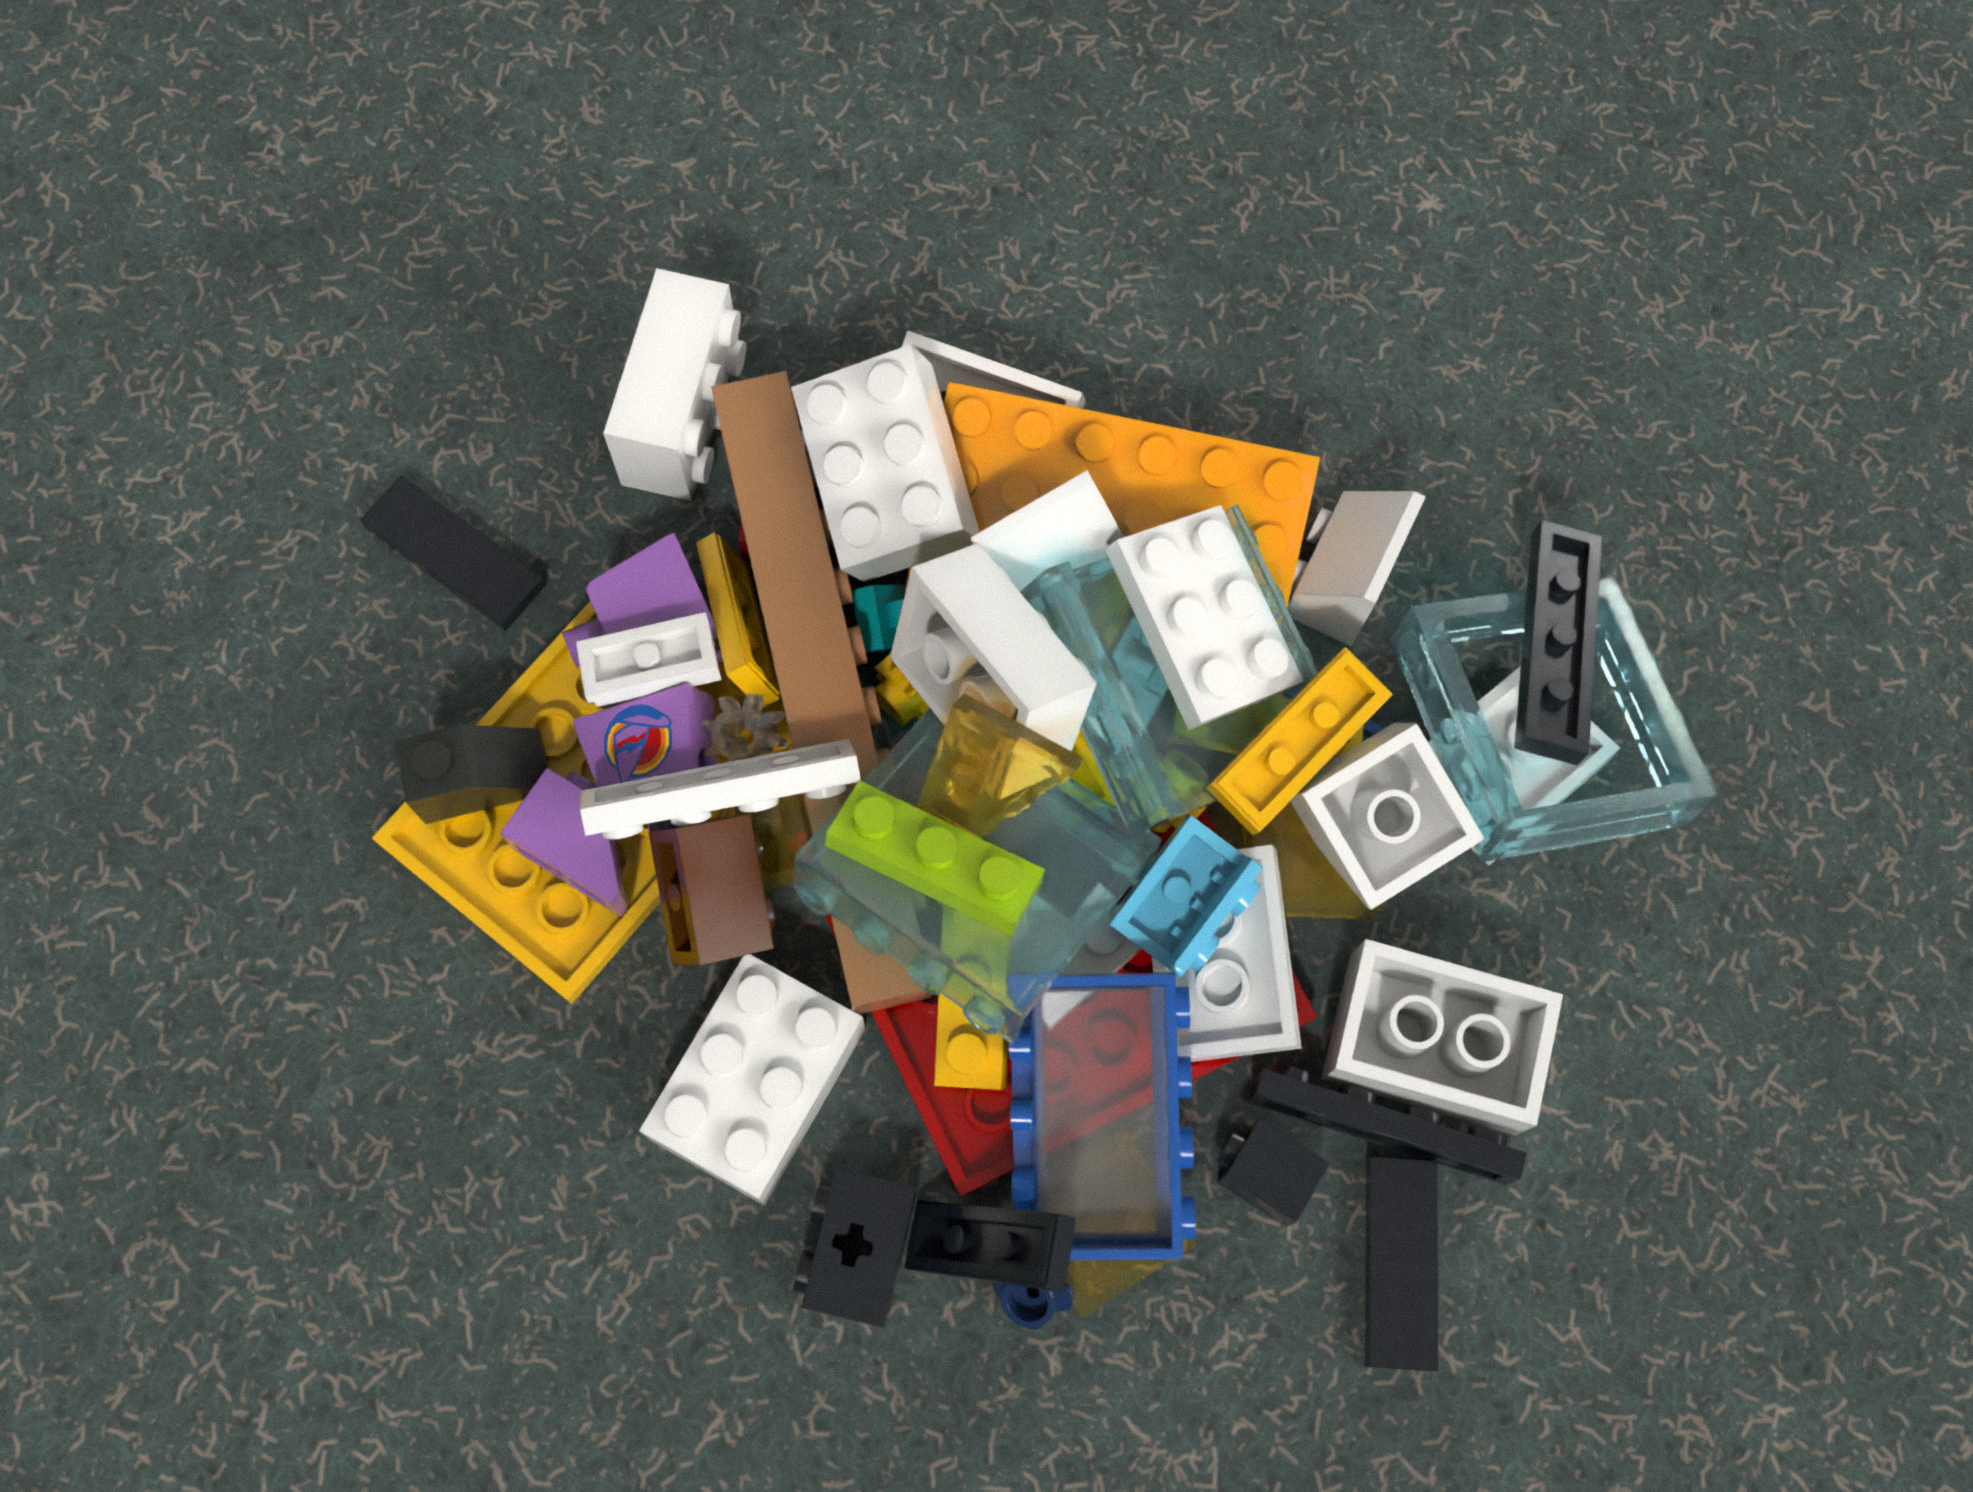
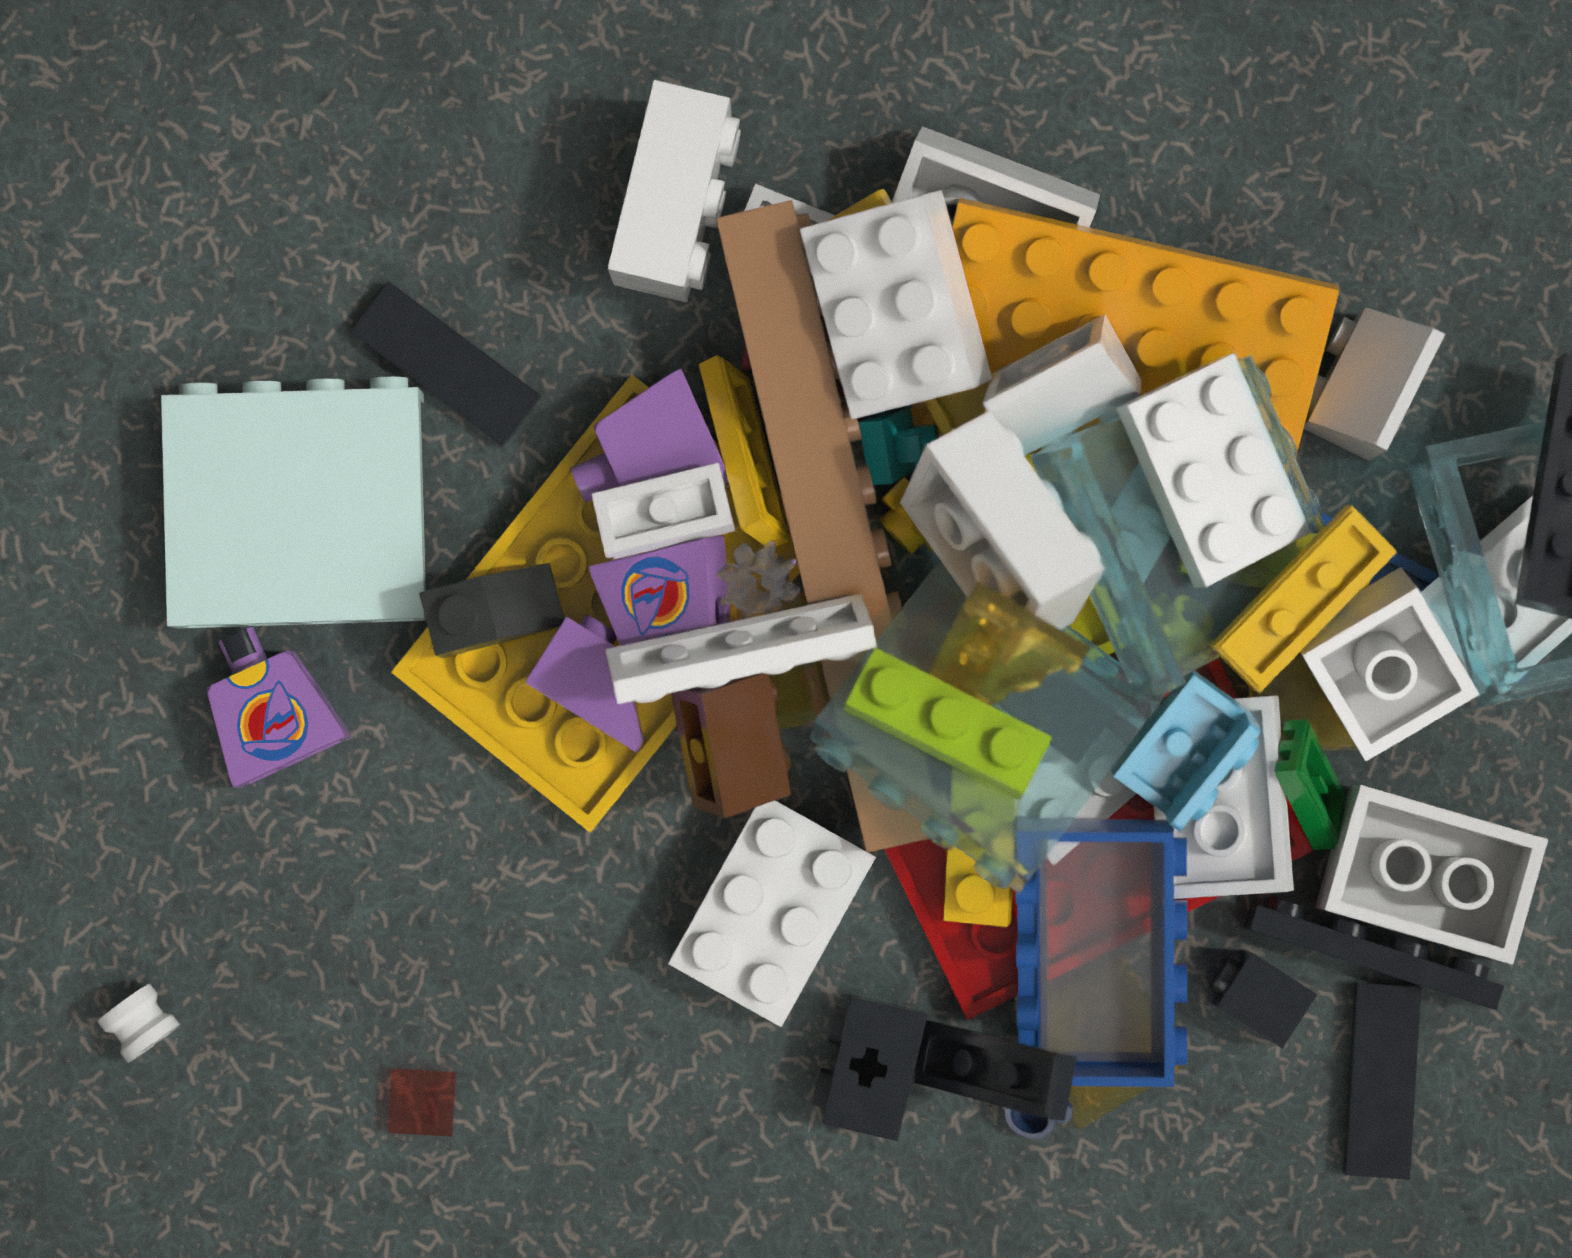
camera: 10 degrees right, 15 degrees up
(69, 1204) = (138, 1023): none -> white wheel
(242, 880) = (269, 711): none -> medium lavender torso
(282, 679) = (293, 504): none -> light aqua panel
(373, 1293) = (422, 1102): none -> clear red tile
(1313, 943) = (1310, 784): none -> green tile

